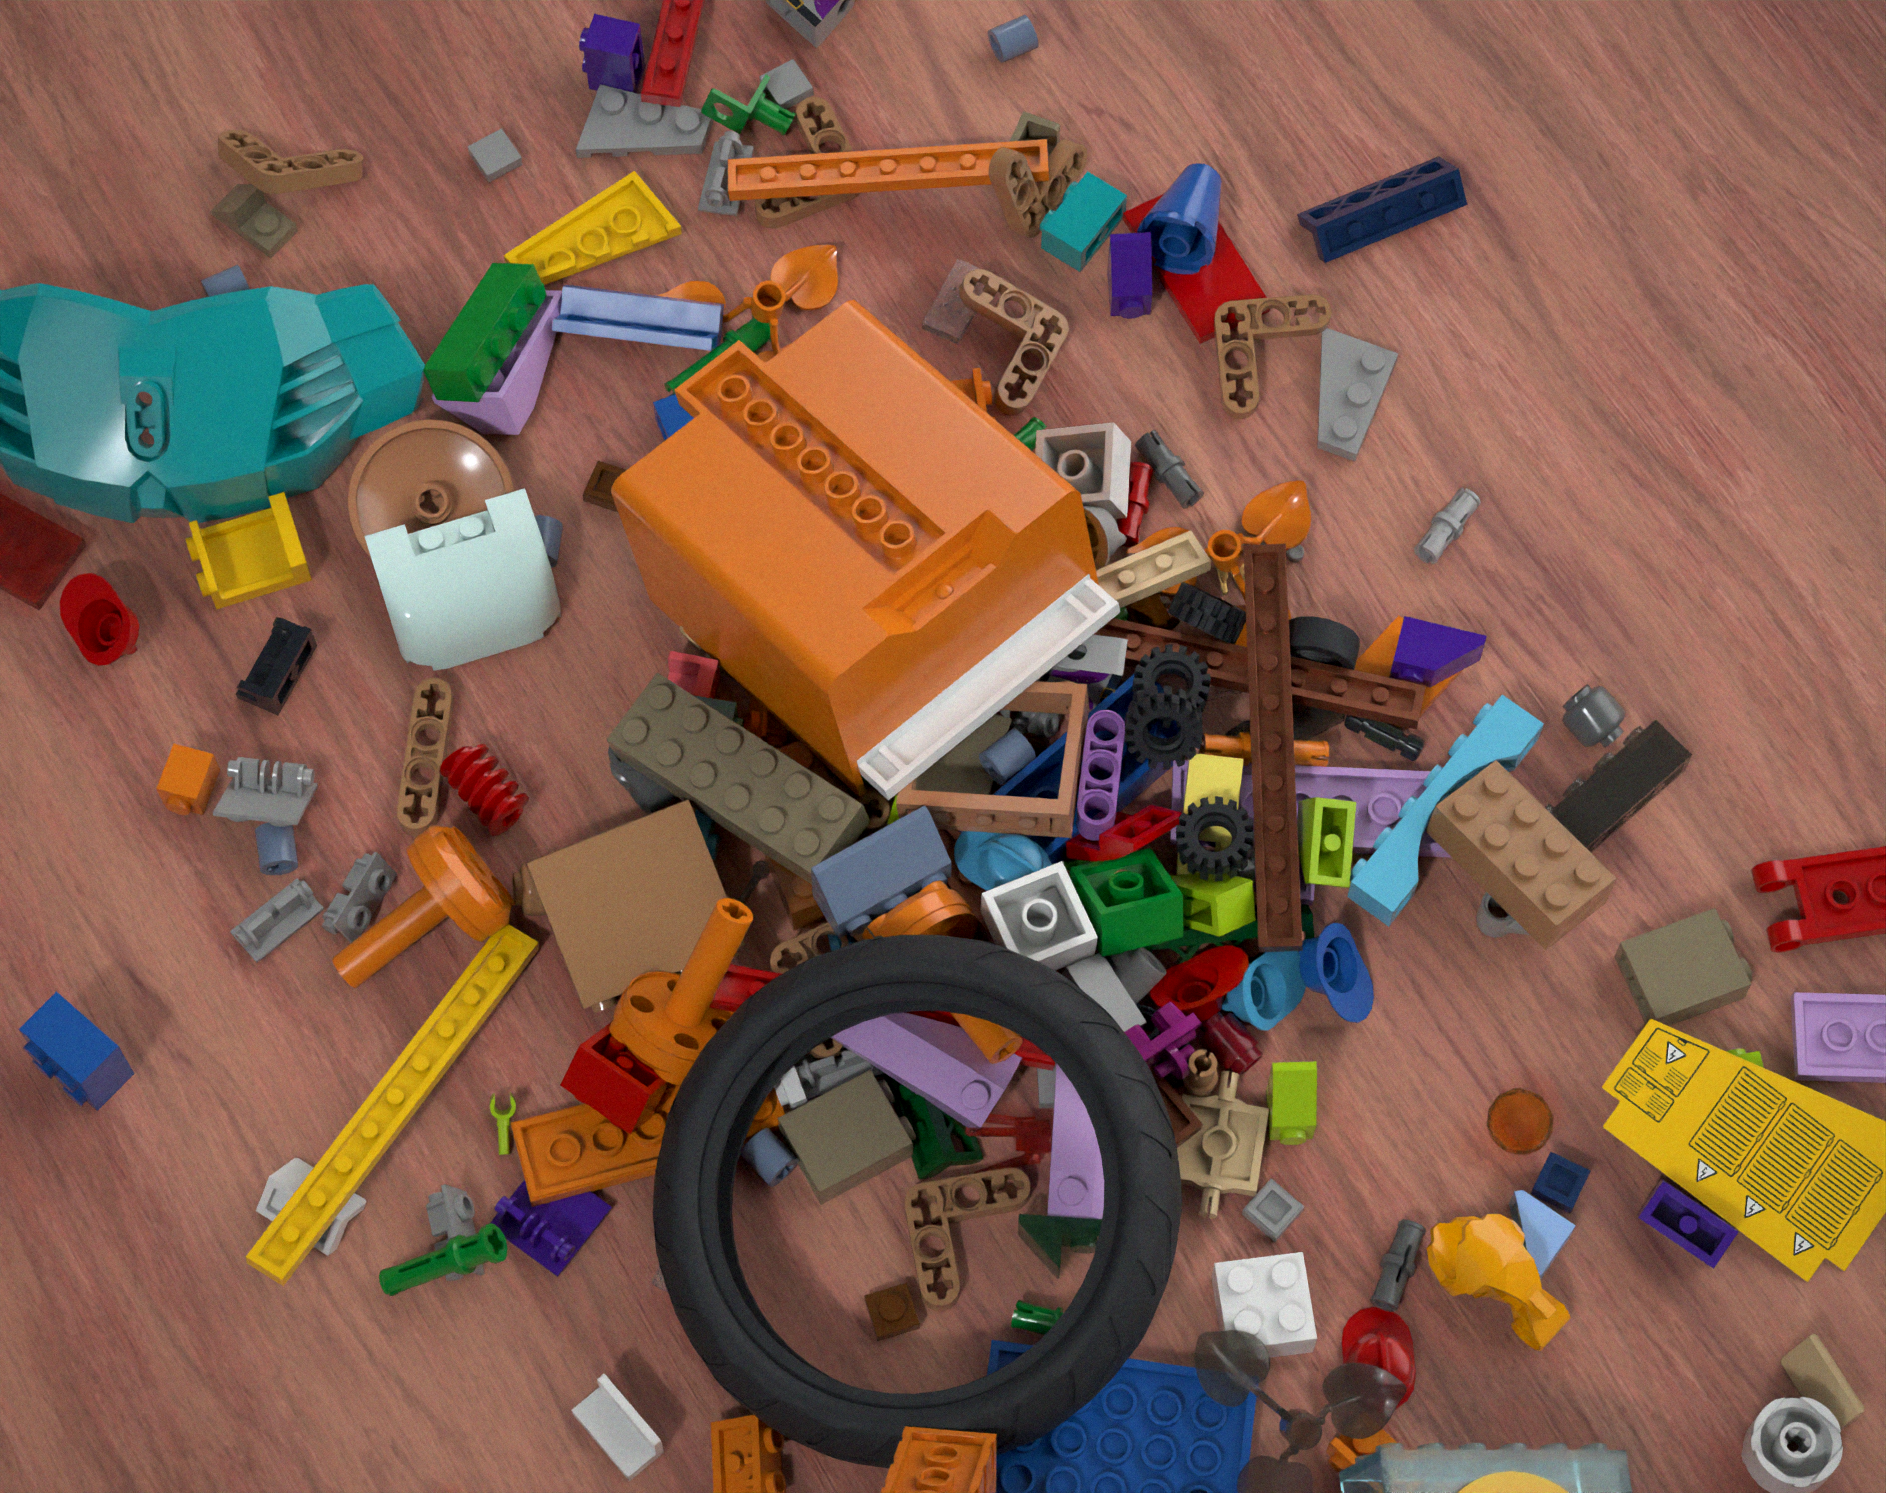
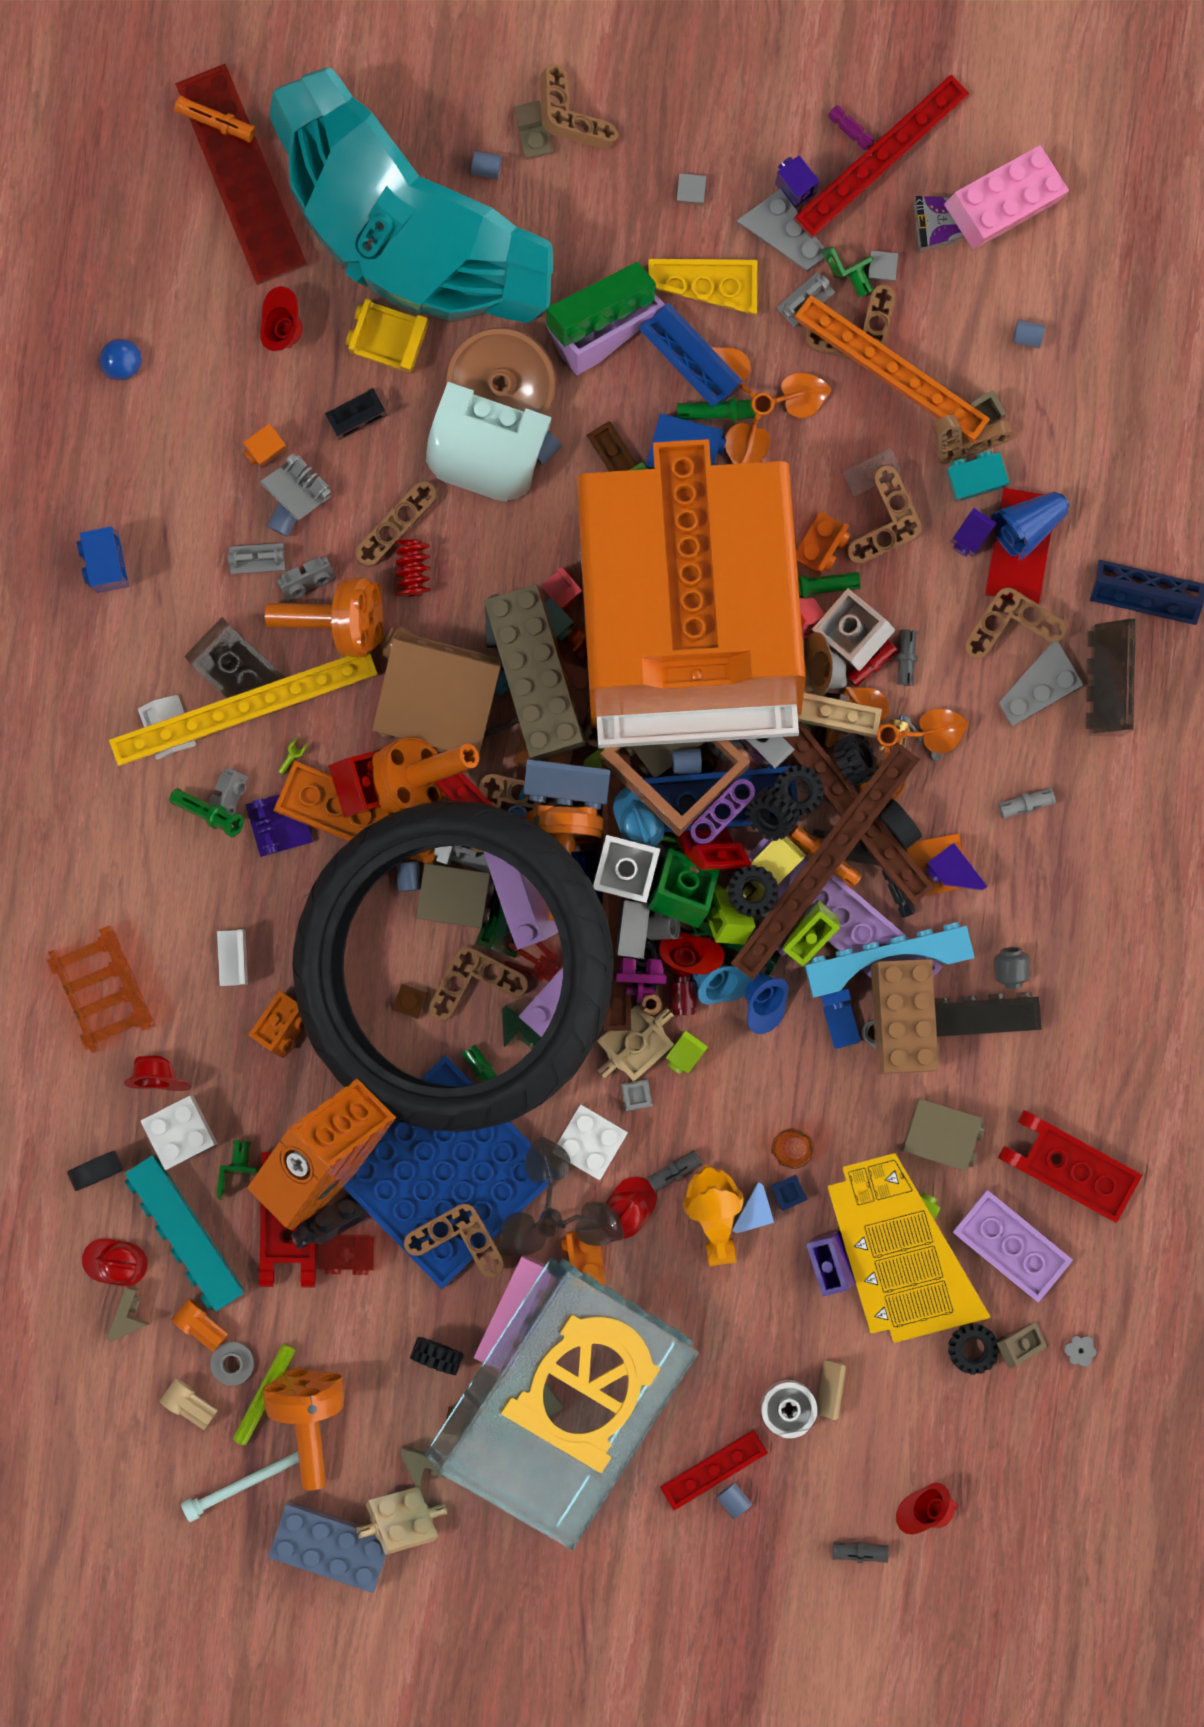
camera: 40 degrees right, 20 degrees up
(333, 1059) = (231, 661): none -> clear smoke slope
(1428, 310) = (1111, 678): none -> clear smoke slope
(1440, 926) = (840, 1018): none -> blue bracket

